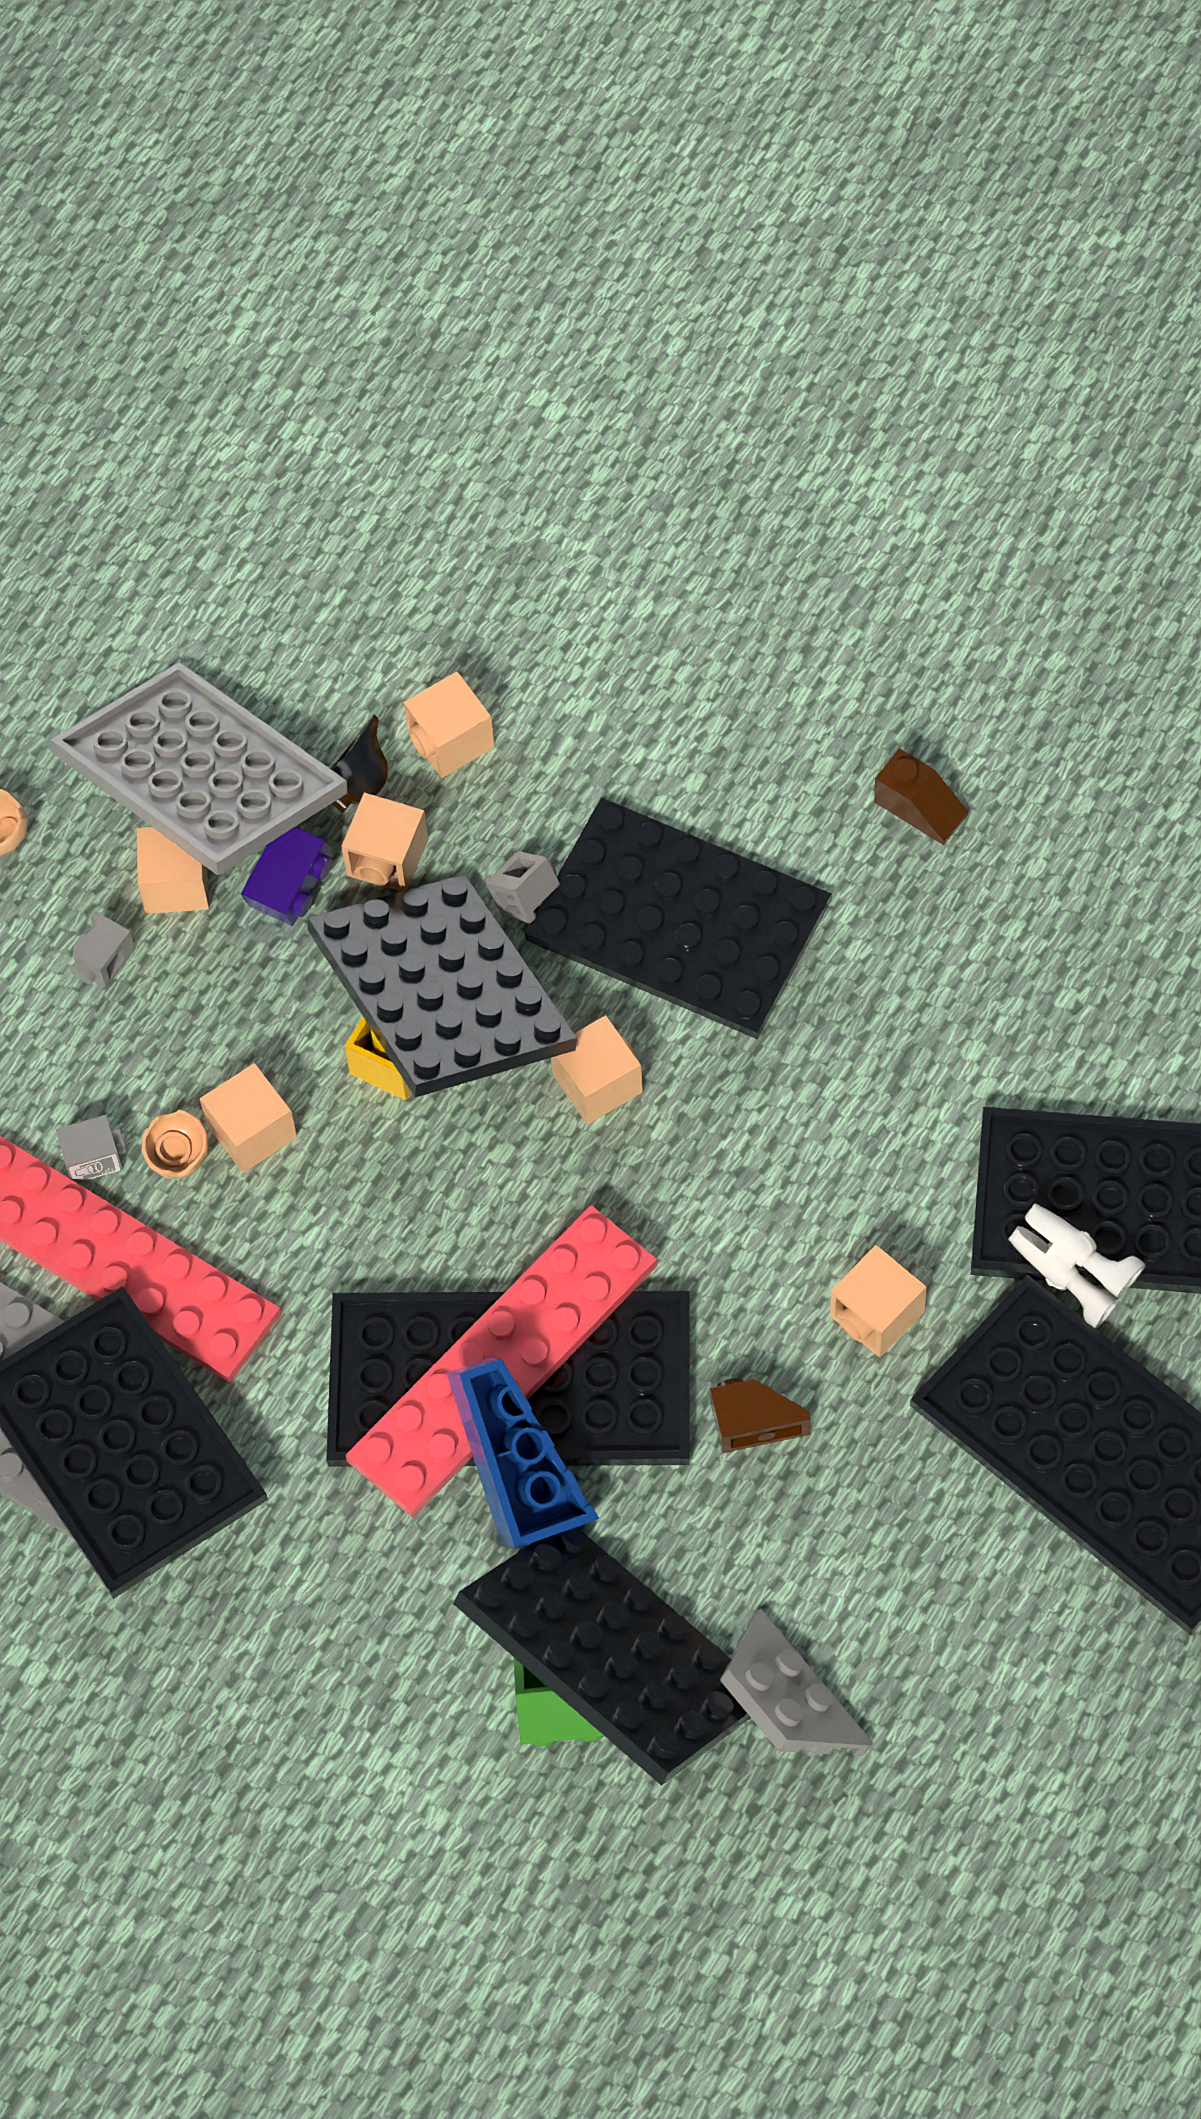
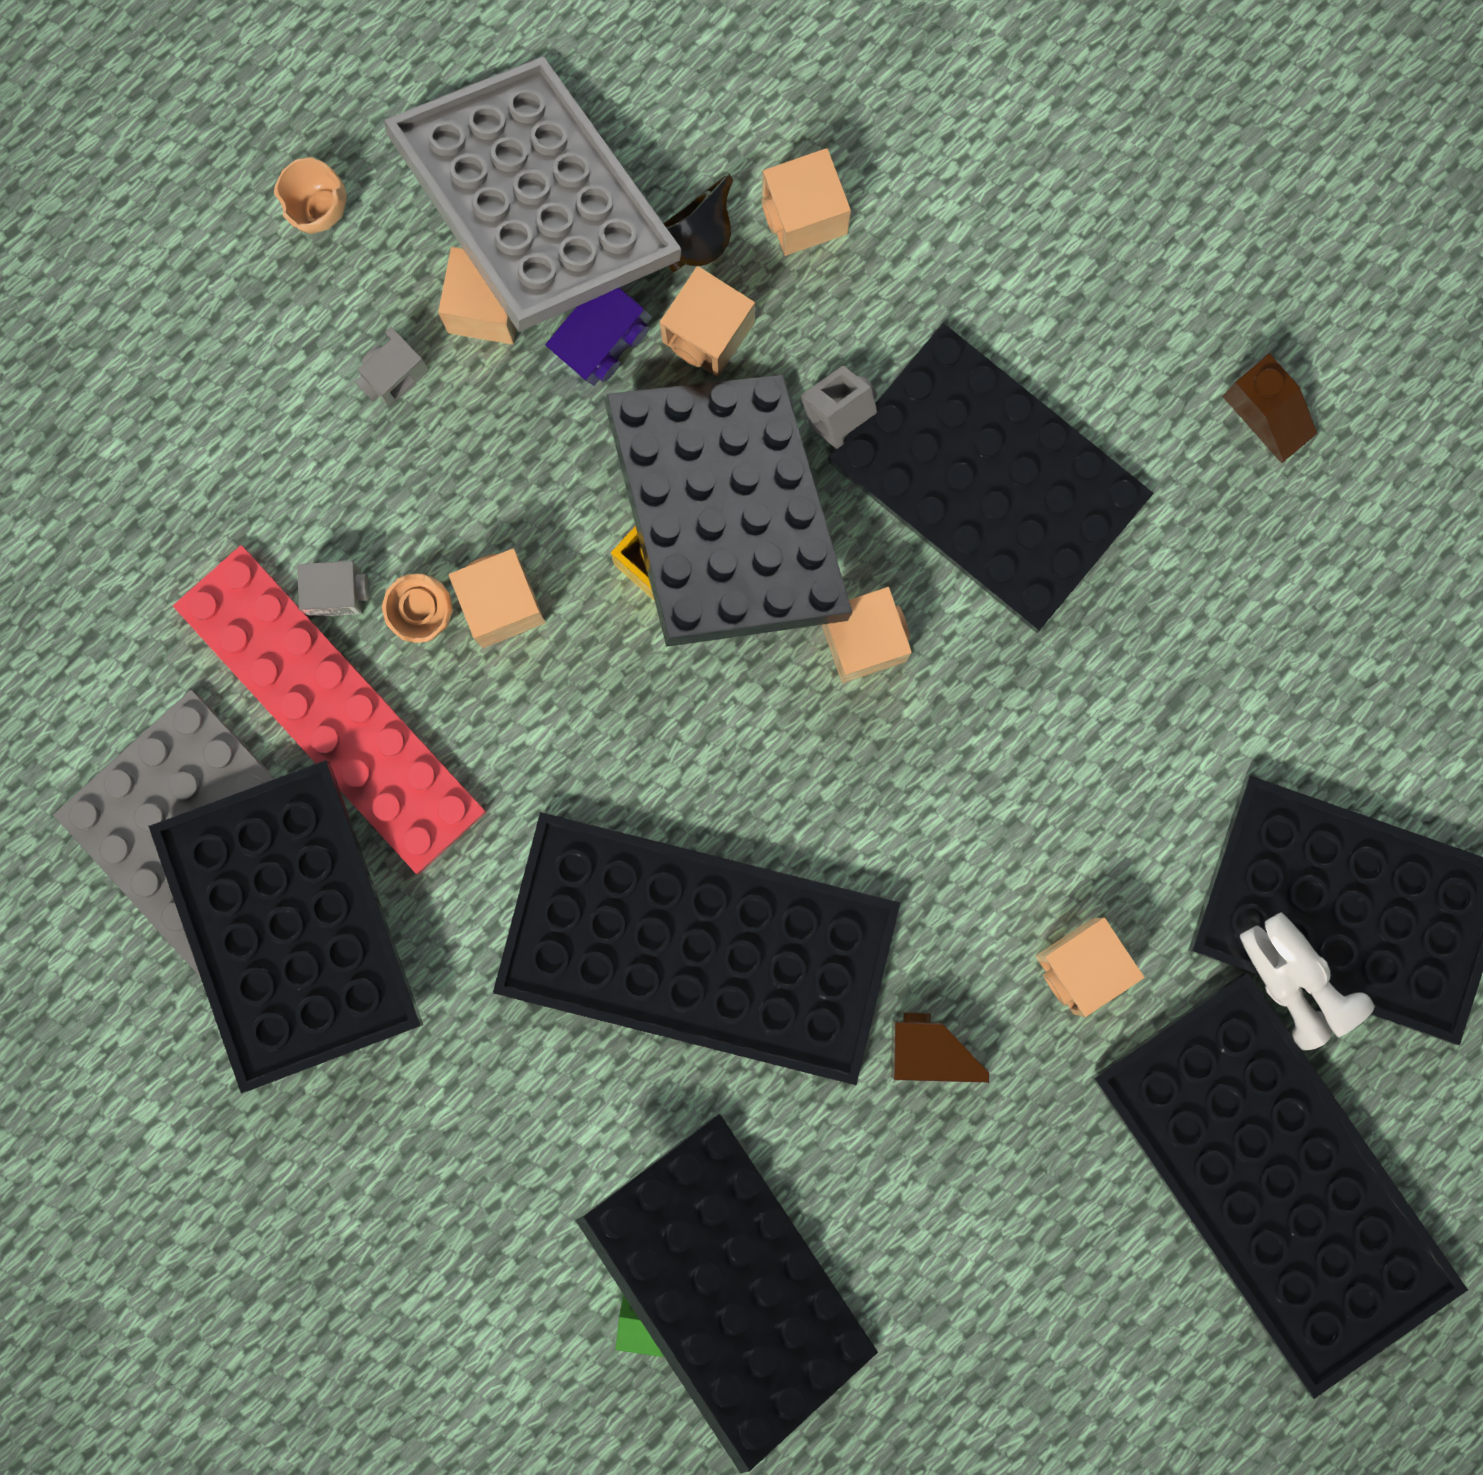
camera: 10 degrees right, 20 degrees up
(515, 1458) = (680, 1068): blue wedge -> none
(533, 1332) = (693, 934): coral plate -> none
(787, 1695) = (891, 1364): light grey wing -> none

